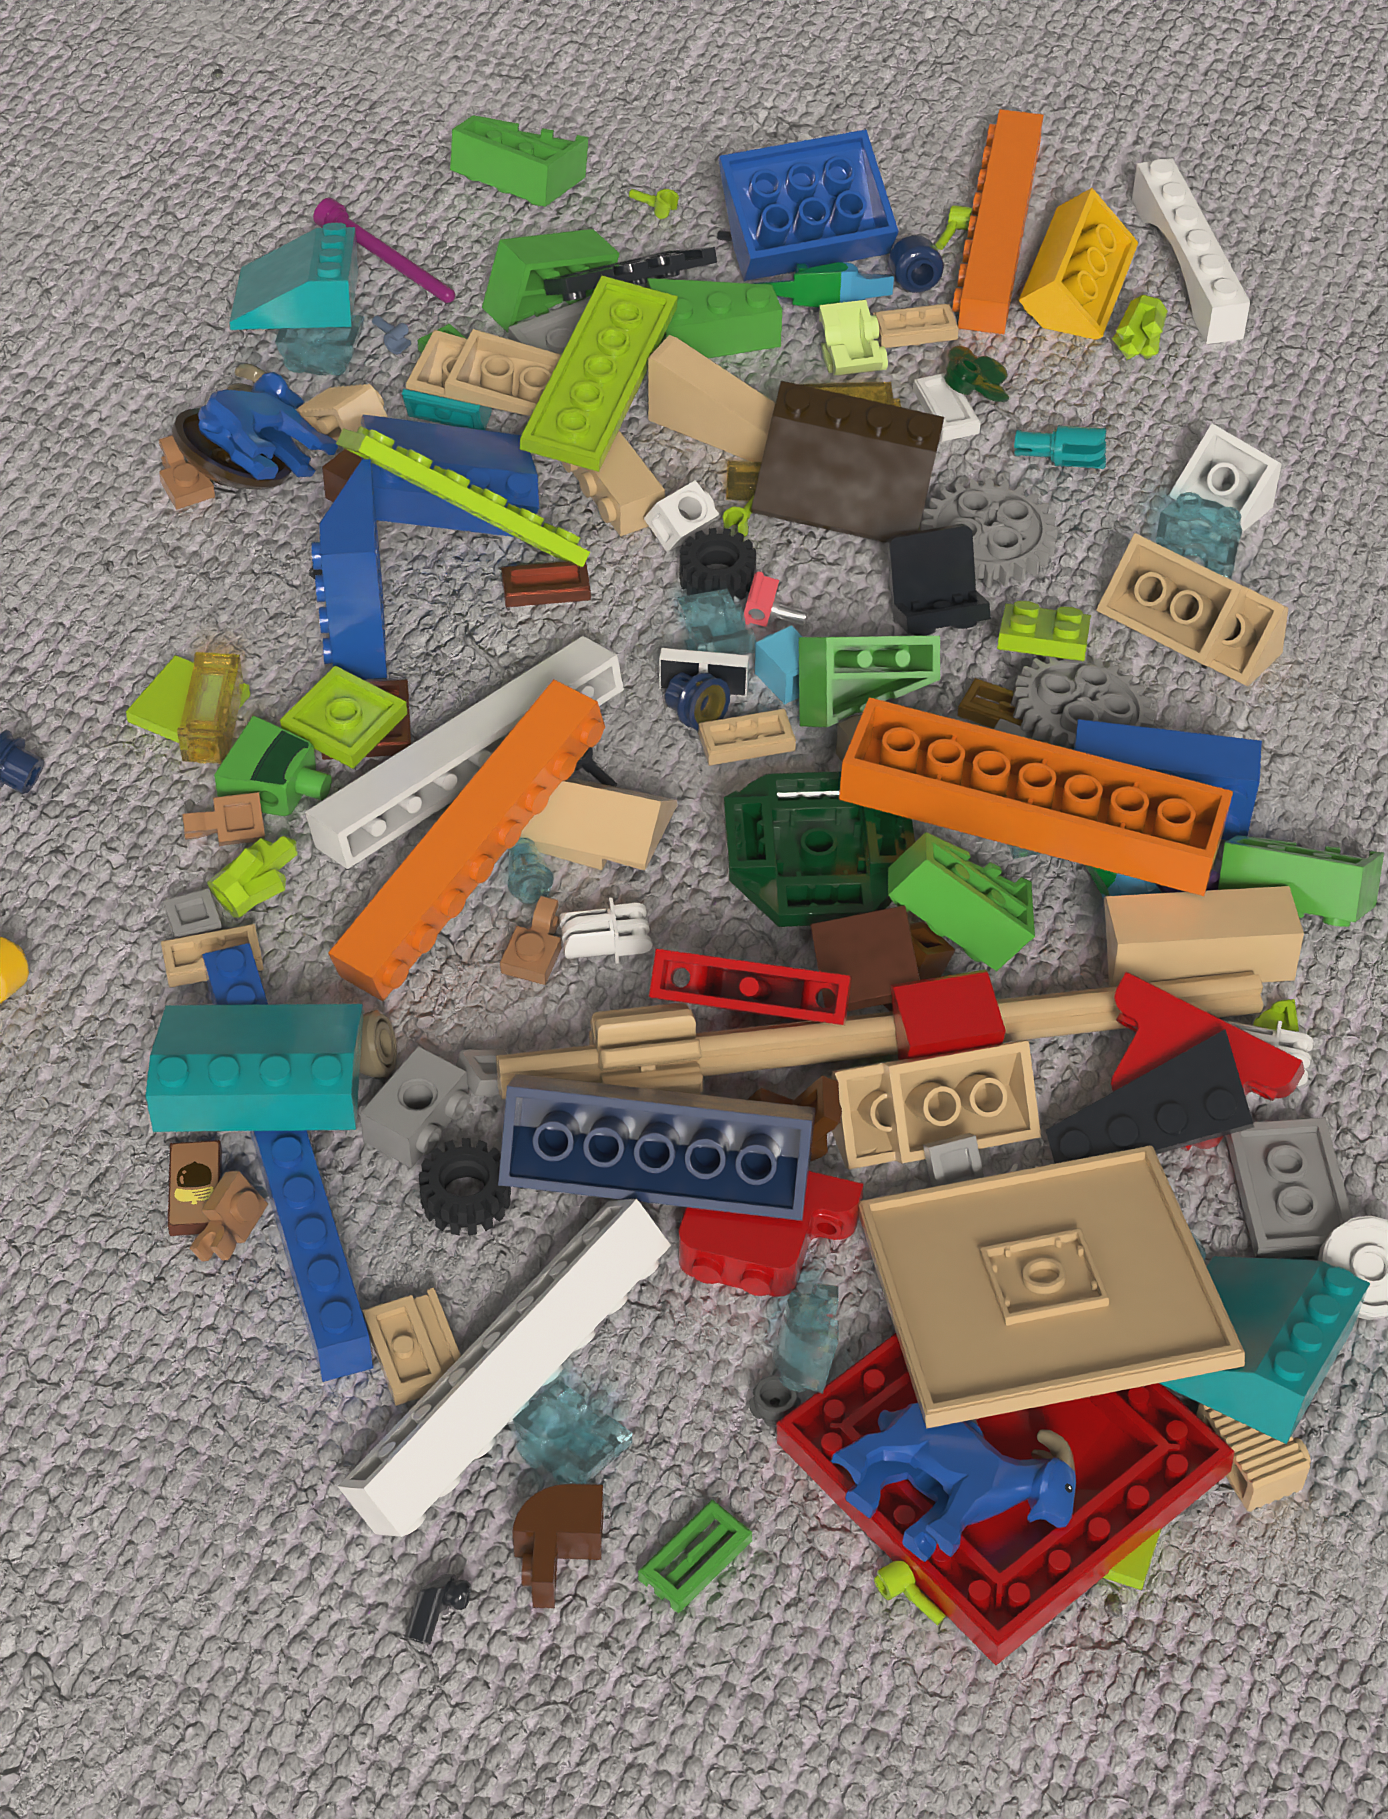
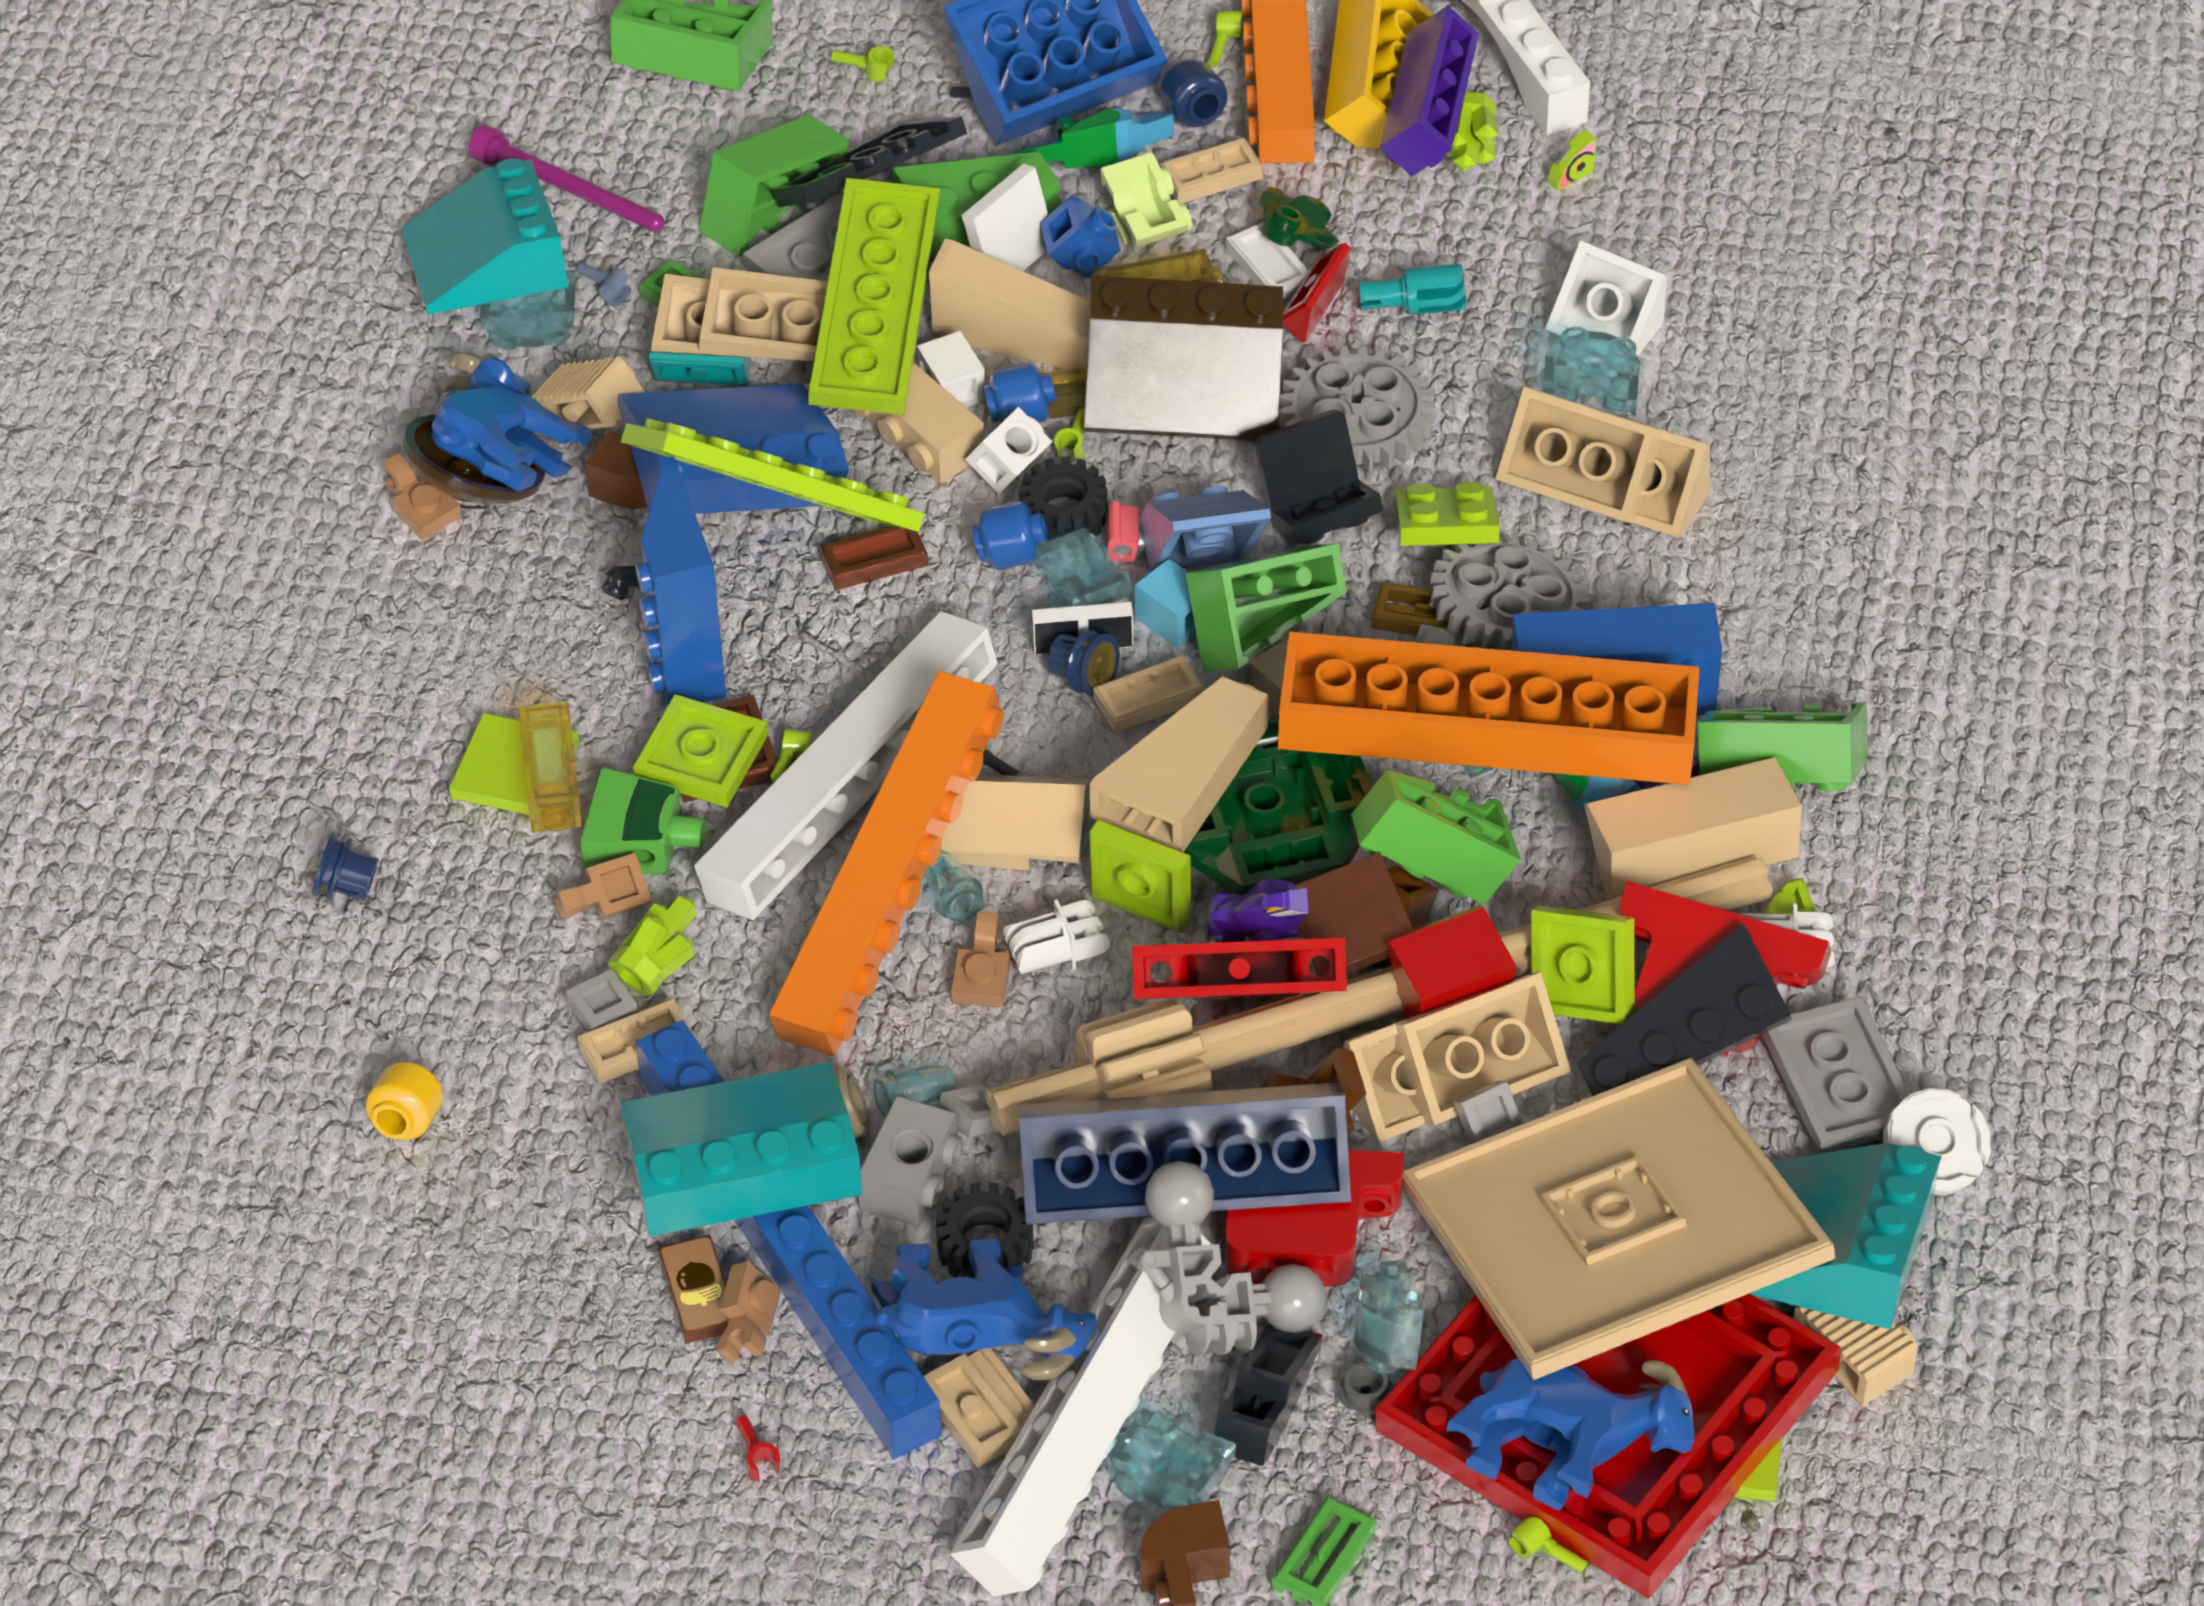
camera: 10 degrees left, 0 degrees up
(199, 1347) = (756, 1448): none -> red hand
(426, 724) = (793, 745): none -> lime hand
(429, 1259) = (978, 1311): none -> blue animal
(441, 1039) = (915, 1084): none -> clear light blue cone
(654, 444) = (954, 367): none -> white brick
(661, 584) = (1009, 535): none -> blue head
(680, 1385) = (1267, 1392): none -> black slope
(691, 890) = (1140, 876): none -> lime tile
(707, 467) = (1022, 388): none -> blue head
(722, 1301) = (1288, 1298): none -> light grey piece
(734, 334) = (1009, 219): none -> white tile
(748, 800) = (1183, 766): none -> tan slope
(784, 942) = (1265, 913): none -> dark purple animal
(789, 356) = (1080, 236): none -> blue brick
(826, 604) = (1202, 528): none -> medium blue slope
(978, 434) = (1316, 292): none -> red slope
(1072, 1039) = (1585, 962): none -> lime plate
(1111, 289) = (1429, 91): none -> dark purple brick
(1225, 367) = (1576, 163): none -> lime tile

